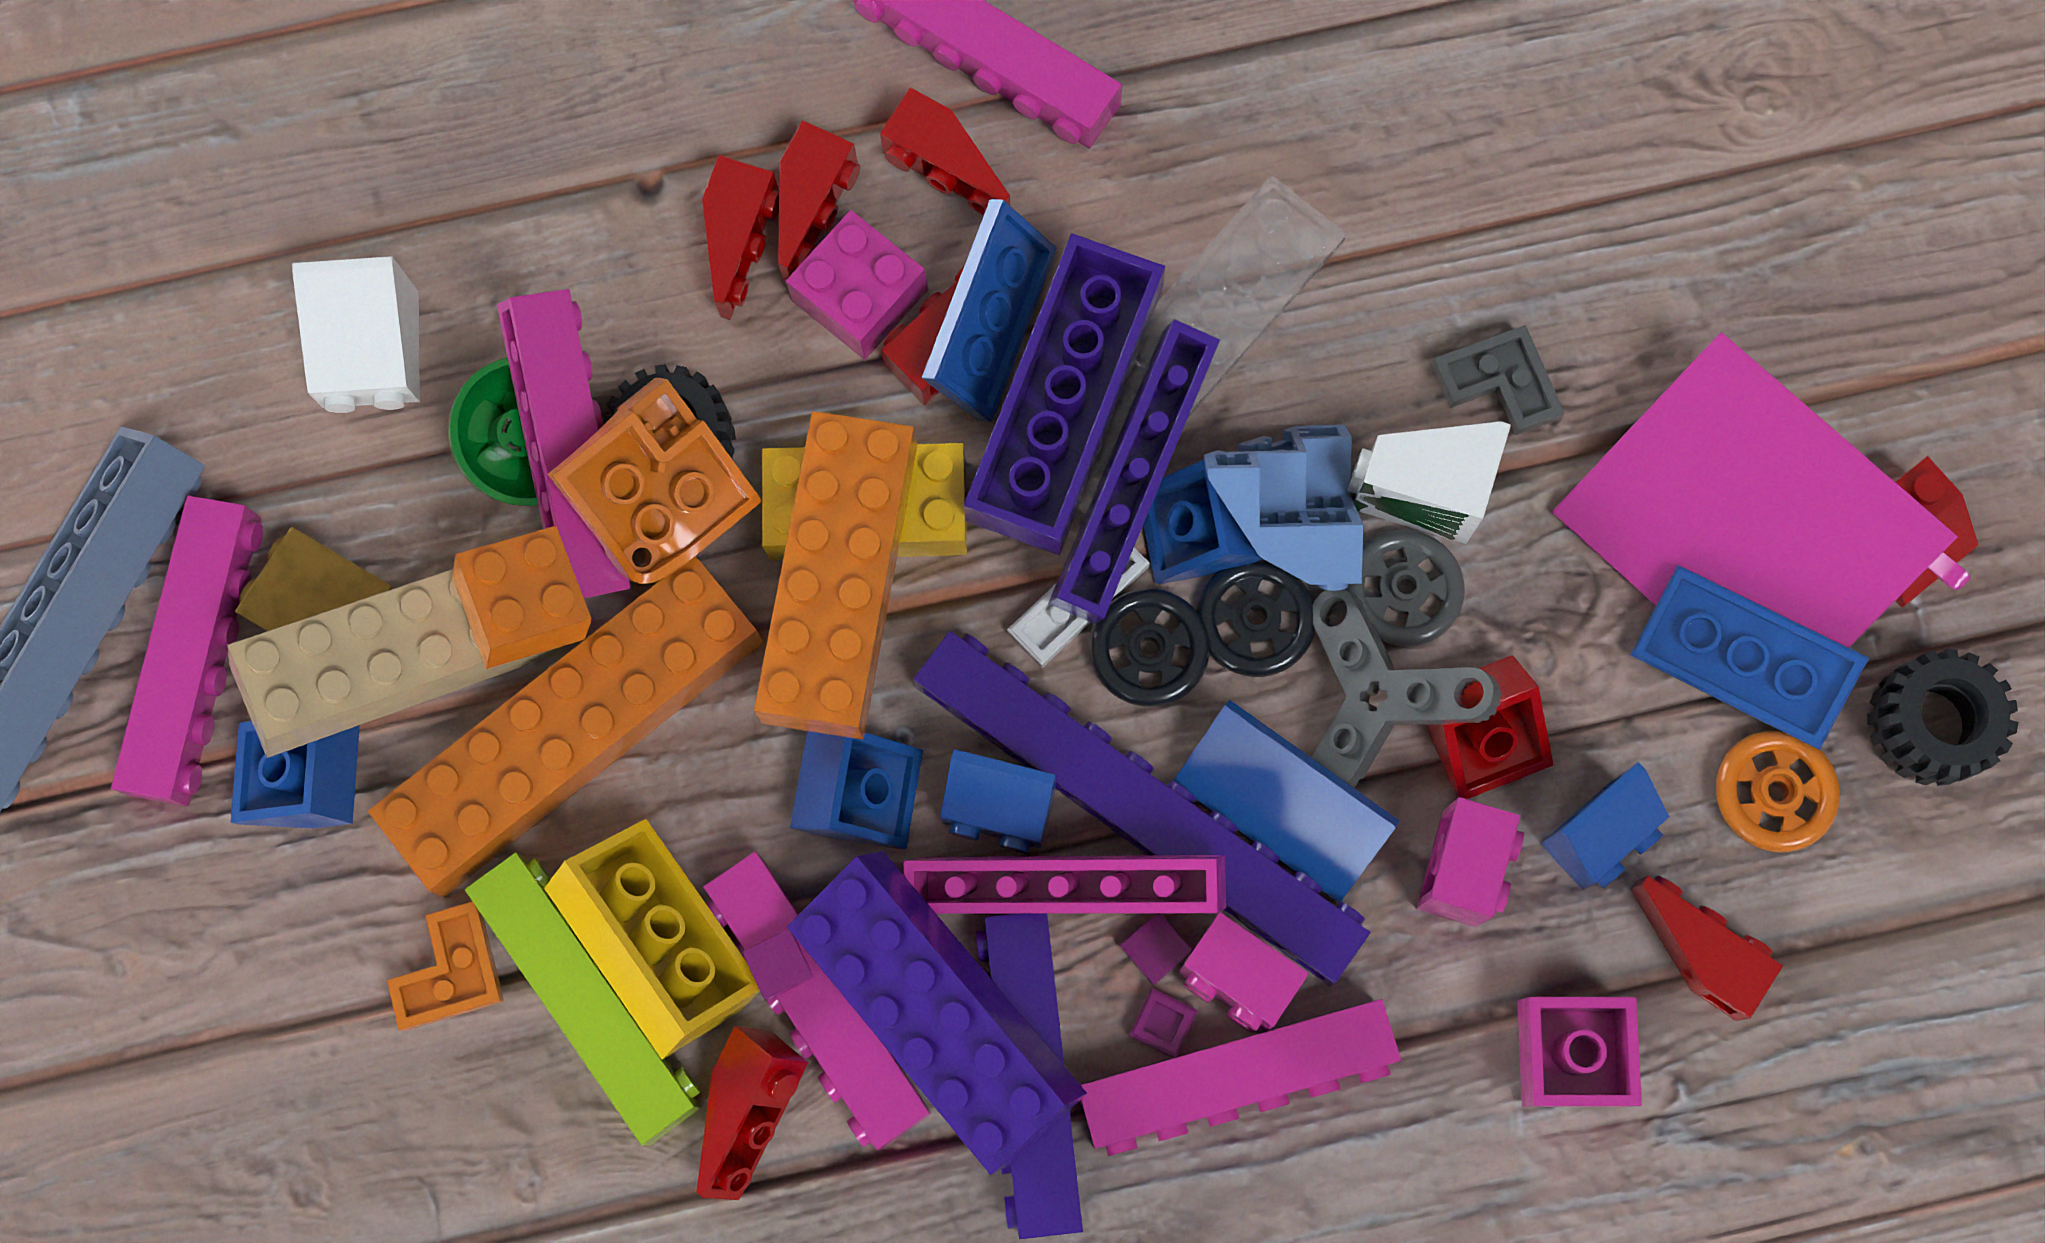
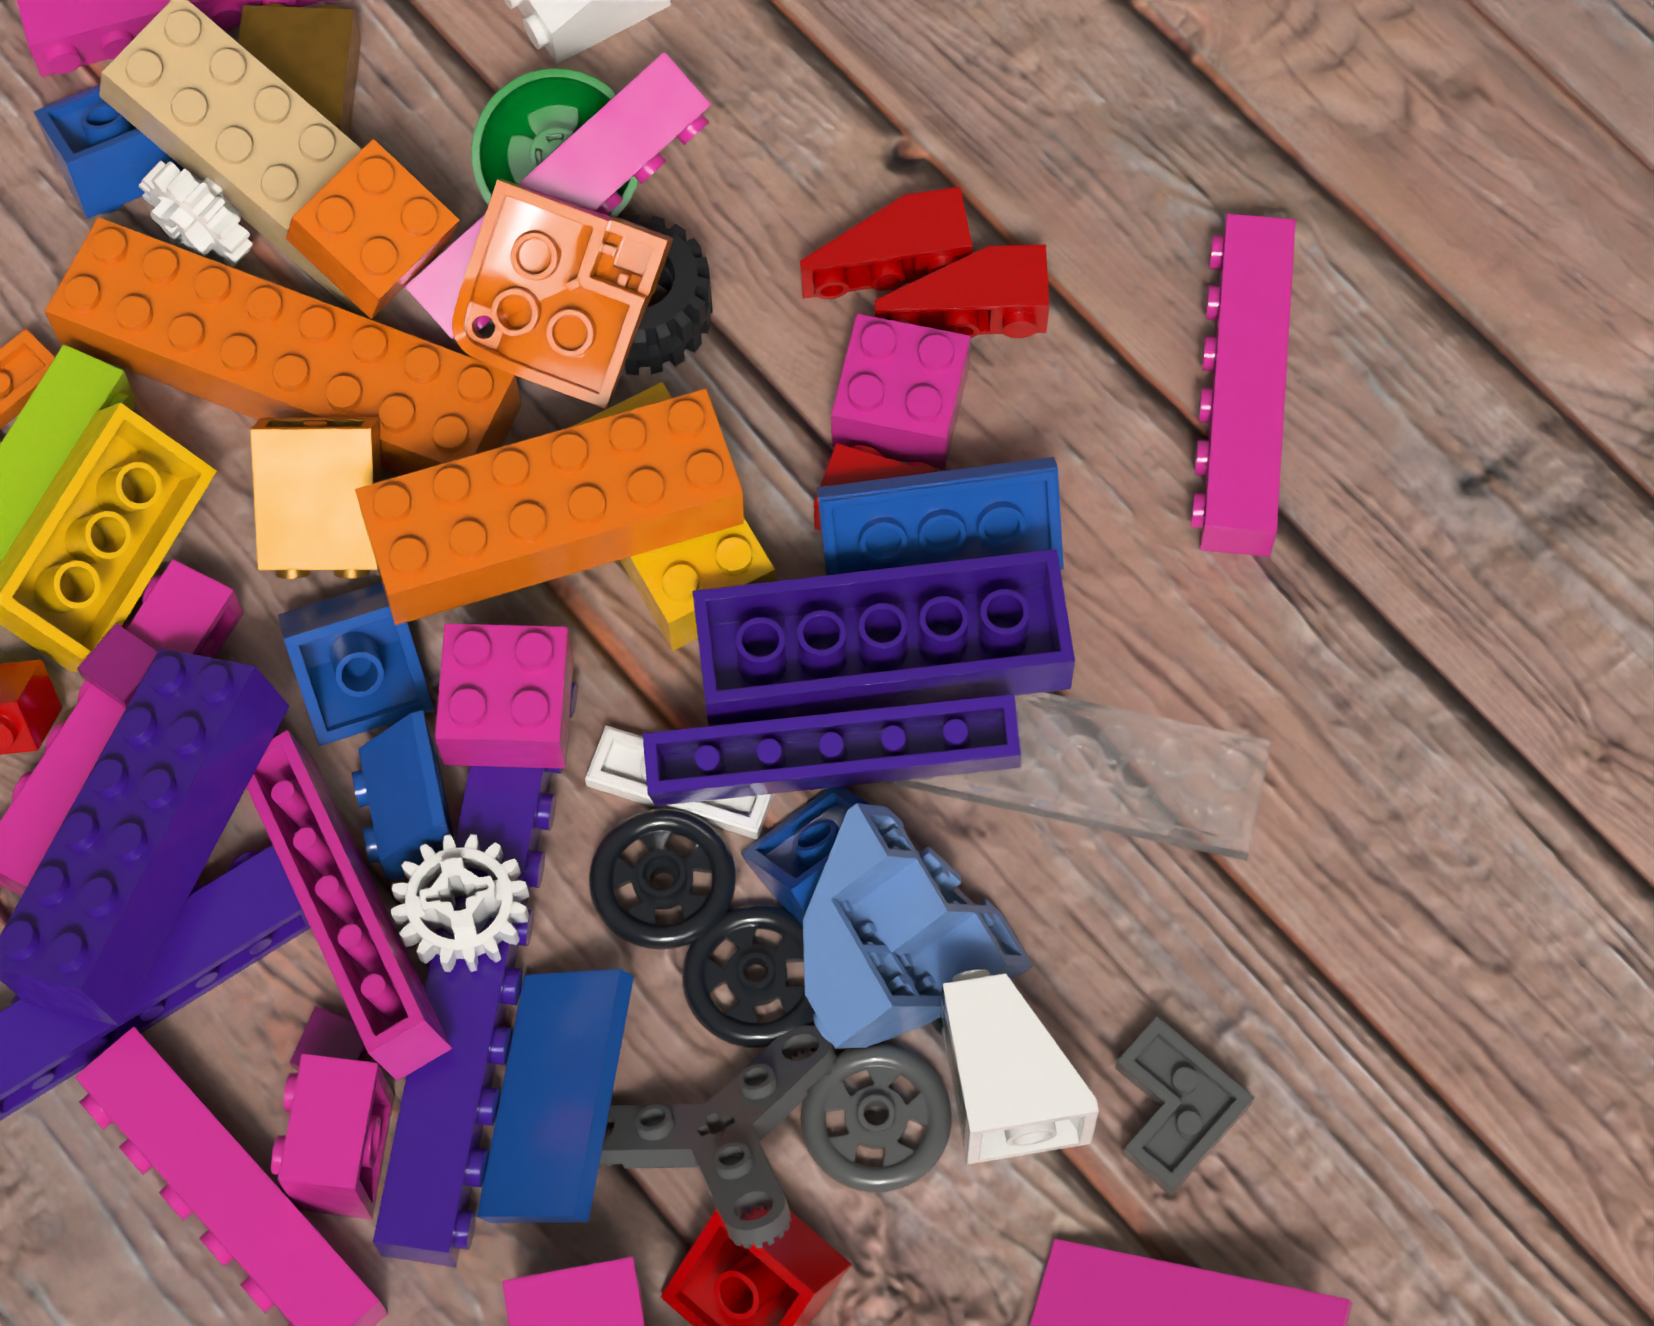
camera: 60 degrees right, 10 degrees down
(408, 734) = (195, 214): none -> white gear
(711, 748) = (308, 495): none -> brick
(936, 145) = (1105, 395): red slope -> none
(967, 684) = (504, 696): none -> dark pink brick
(1091, 787) = (436, 904): none -> white gear
(1163, 1023) = (254, 1095): magenta tile -> none

